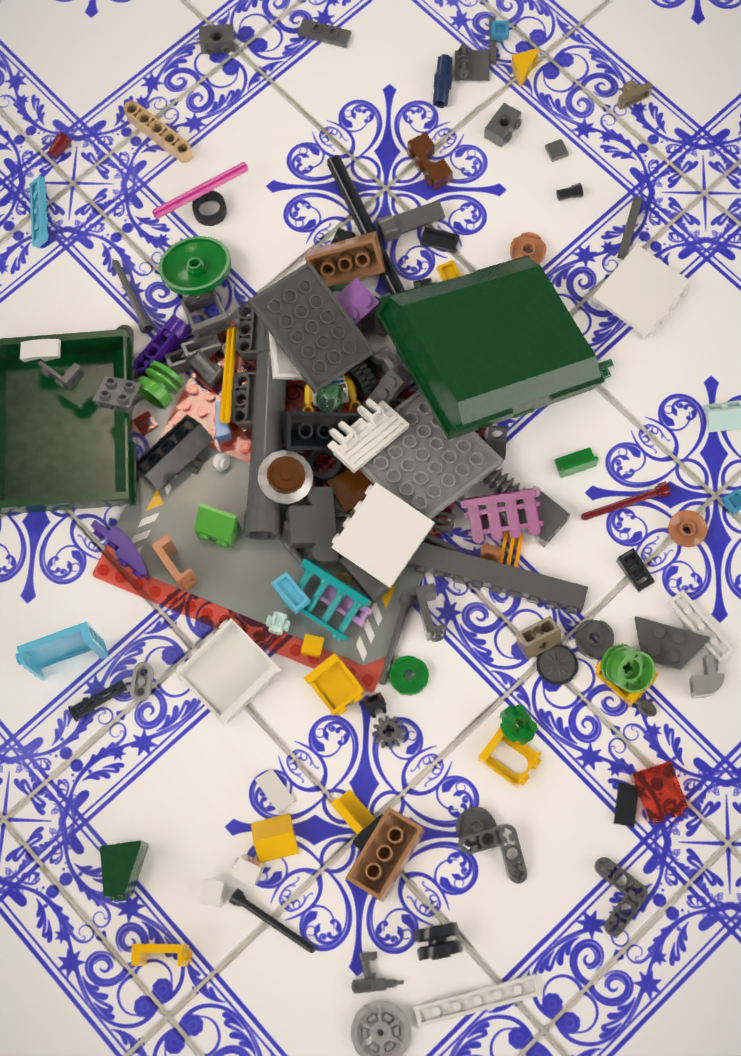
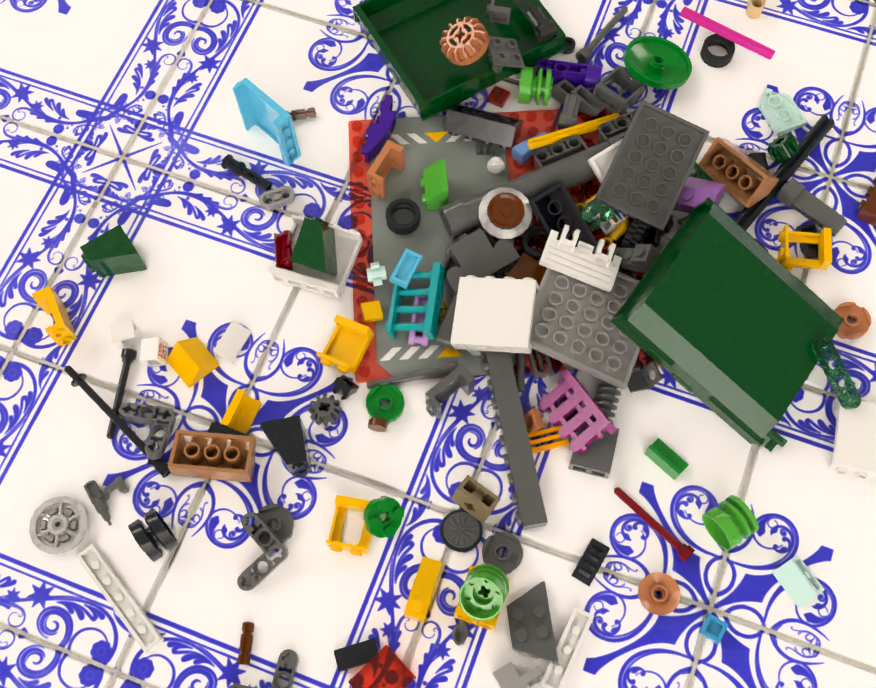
camera: 60 degrees right, 5 degrees down
(57, 618) = (300, 114): none -> axle
(99, 423) = (469, 44): none -> nougat gear
(110, 344) = (542, 26): none -> pearl dark grey piece
(214, 701) = (283, 250): none -> dark red hinge
(228, 665) = (316, 246): none -> dark green slope
(229, 586) = (403, 229): none -> black tyre
(301, 191) = (781, 112): none -> light aqua tile
(324, 894) = (156, 421): none -> dark grey beam
(342, 209) = (783, 147): none -> dark green gear
(357, 914) = (79, 380): none -> black bar
(410, 778) = (290, 443): none -> black slope
(426, 691) = (377, 424): none -> reddish brown tile
(453, 231) = (822, 239): none -> yellow panel
(550, 287) = (833, 374): none -> clear green beam
(572, 898) = (246, 643): none -> reddish brown axle
(596, 721) = (423, 590): none -> yellow slope
(657, 441) = (730, 522): none -> bright green wheel

